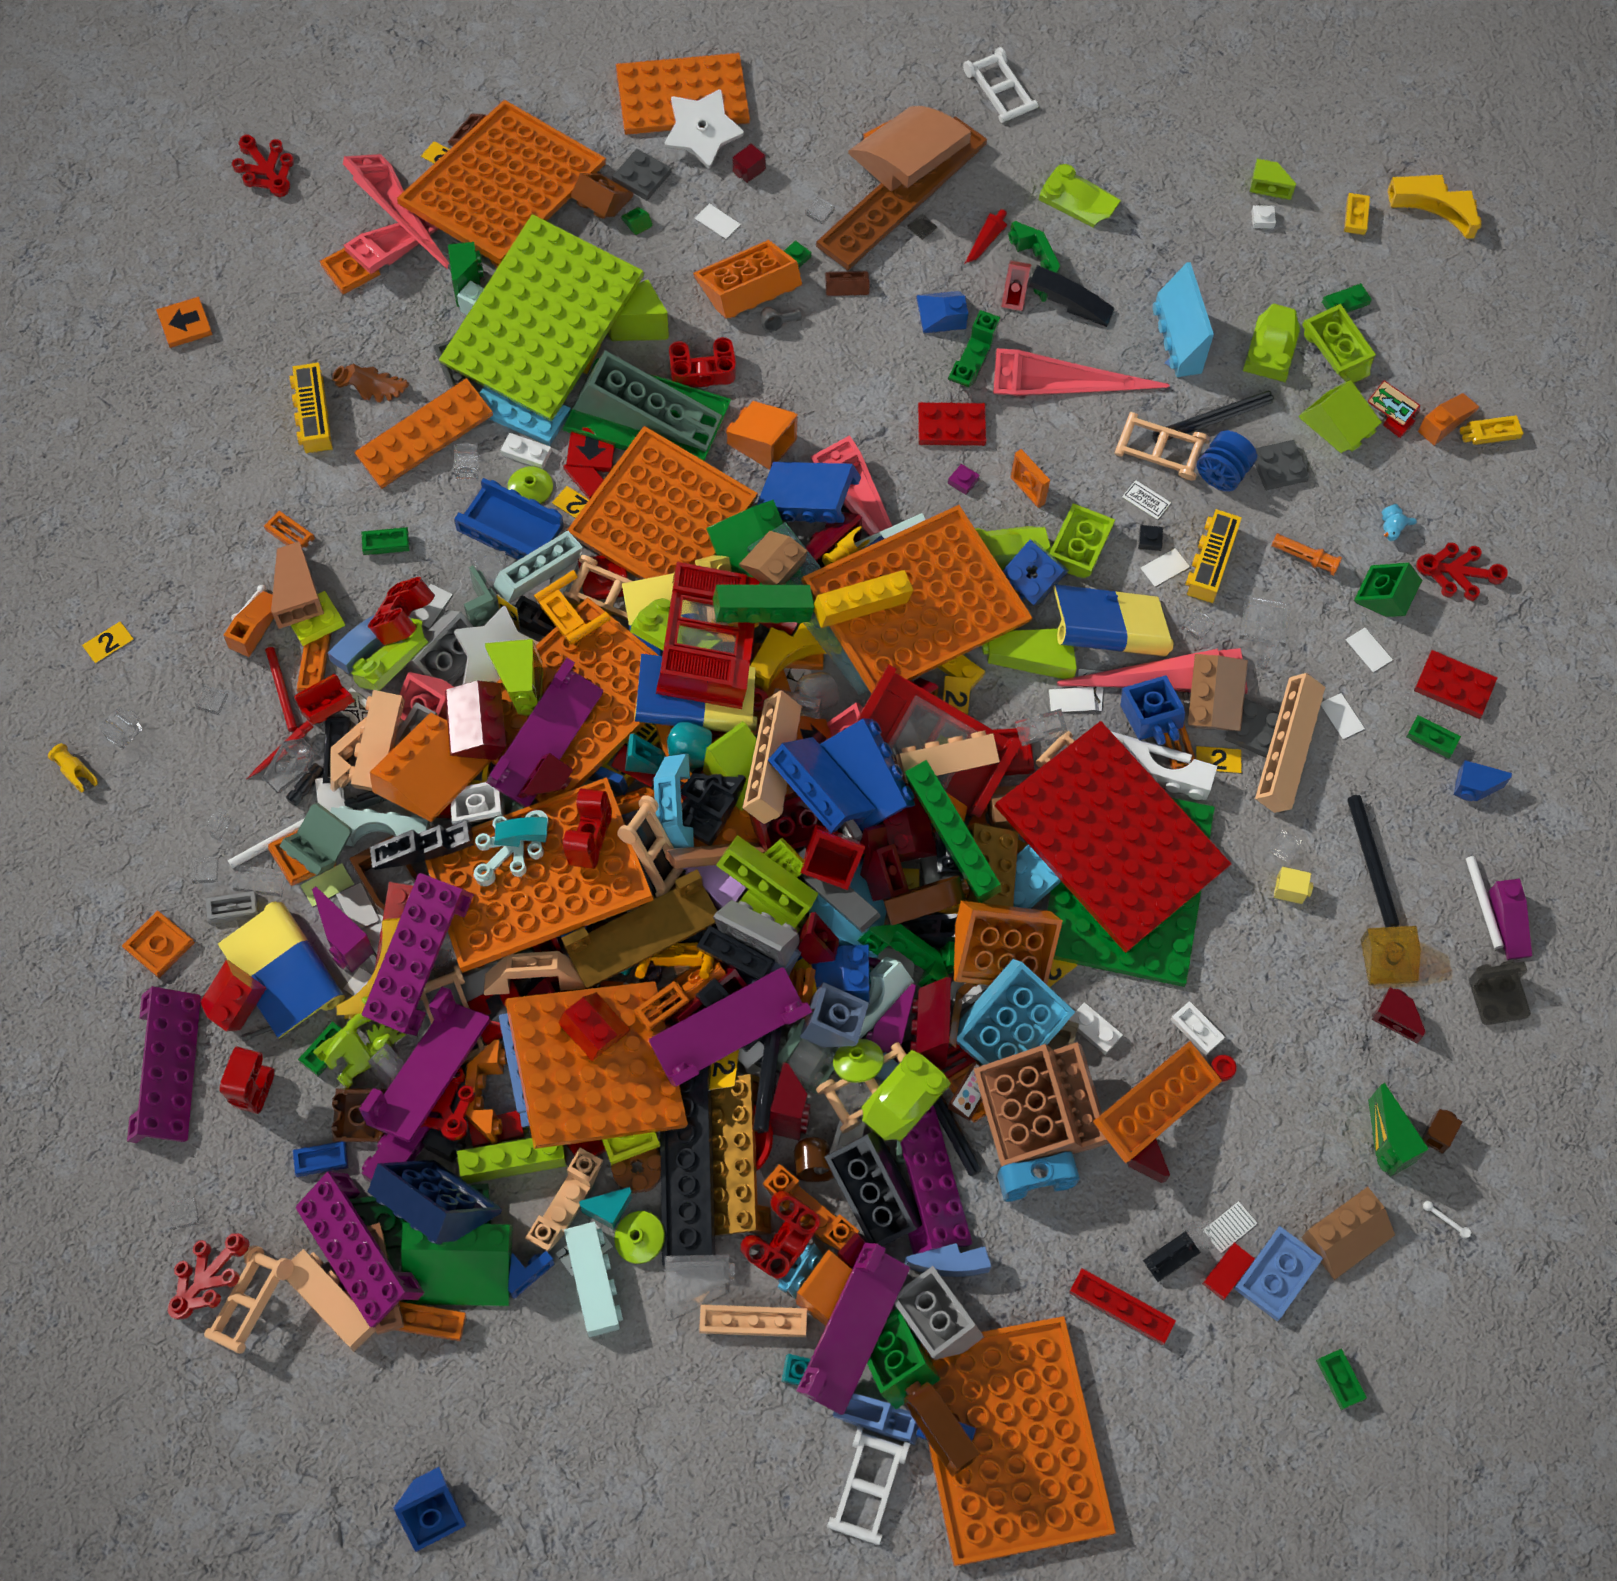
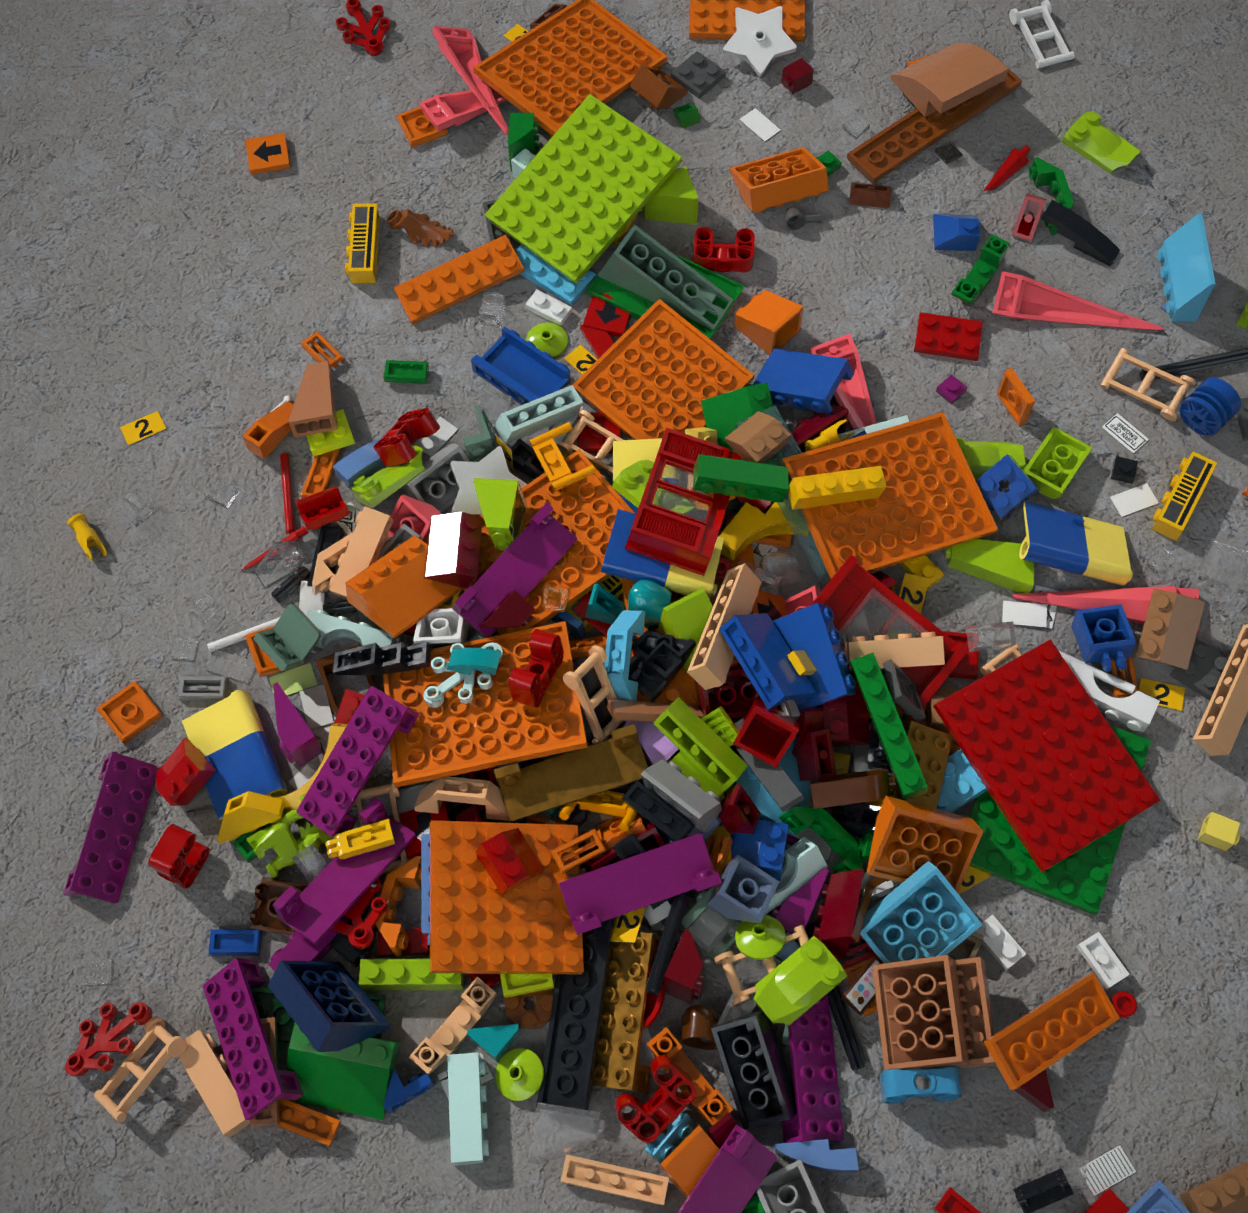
camera: 15 degrees right, 0 degrees up
(309, 1027) = (248, 813): none -> yellow slope
(435, 1032) = (360, 840): none -> yellow hinge
(592, 754) = (556, 597): none -> clear yellow slope
(856, 781) = (801, 662): none -> yellow tile
(962, 794) = (903, 690): none -> dark grey plate

